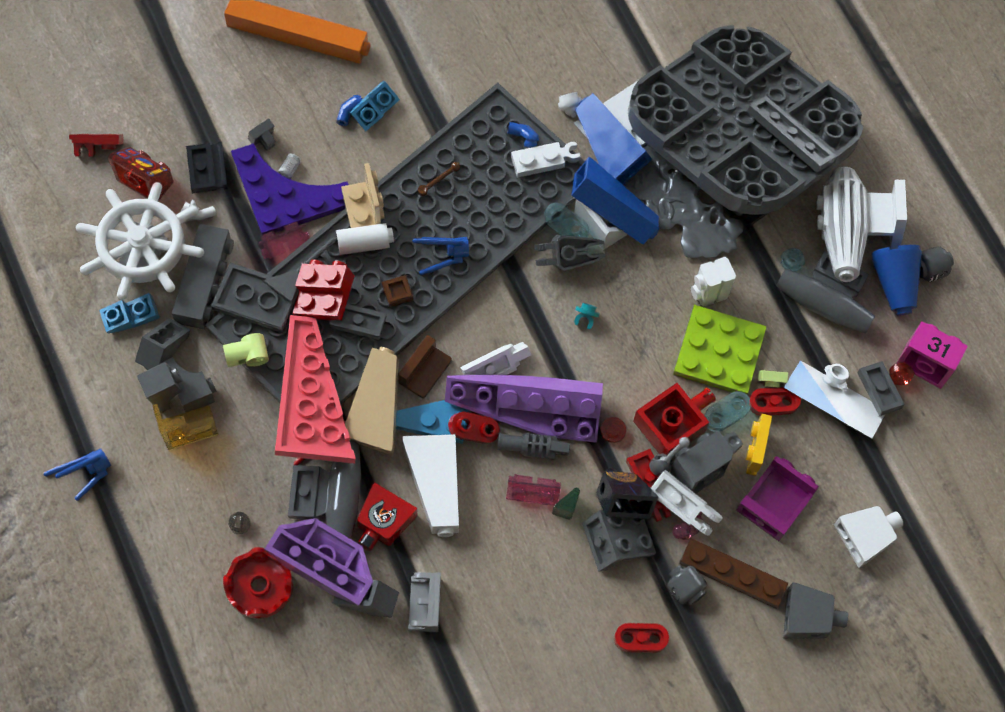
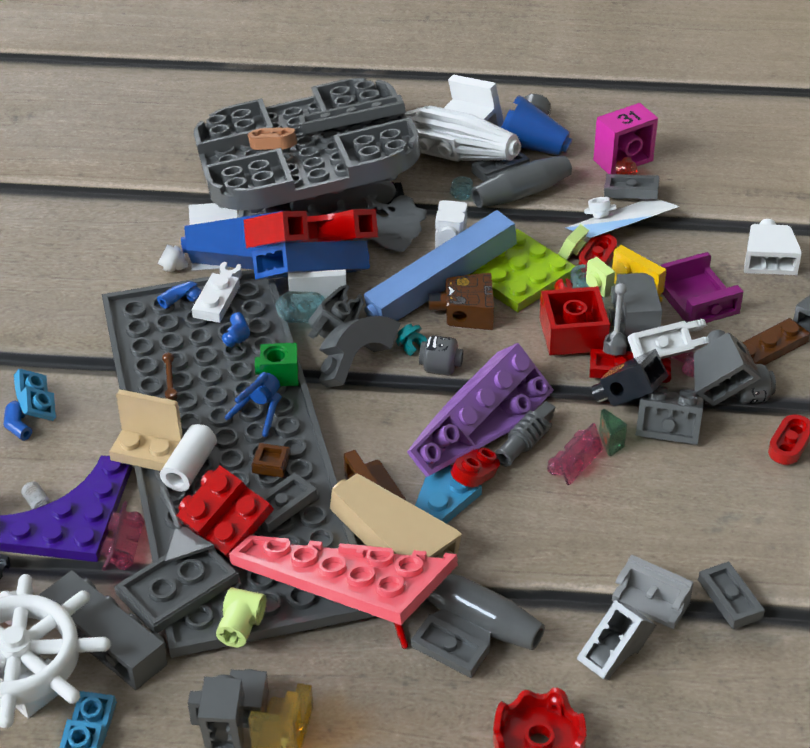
camera: 55 degrees left, 25 degrees down
(161, 343) = (162, 706): dark grey arch -> none
(244, 523) = (440, 732): clear smoke hinge -> none
(323, 558) = (560, 645): medium lavender wedge -> none
(384, 517) = (529, 582): red torso -> none
(435, 476) = (516, 524): white slope -> none
(453, 656) = (731, 595): none -> dark grey plate
(487, 252) = (280, 361): none -> green brick
(498, 362) = (412, 418): white hinge -> none
(509, 197) = (237, 332): none -> blue arm
(549, 276) = (345, 340): none -> dark grey arch
(579, 345) = (440, 355): none -> dark grey head
(604, 161) = (298, 227): none -> red arch
(613, 429) = (551, 370): clear red plate -> none
(651, 333) = (466, 301): none -> reddish brown torso
(668, 296) = (453, 258): none -> medium blue brick
(677, 555) = (723, 367): none -> dark grey torso
(727, 417) = (600, 275): none -> yellowish green plate
(734, 92) = (272, 138): none -> nougat beam

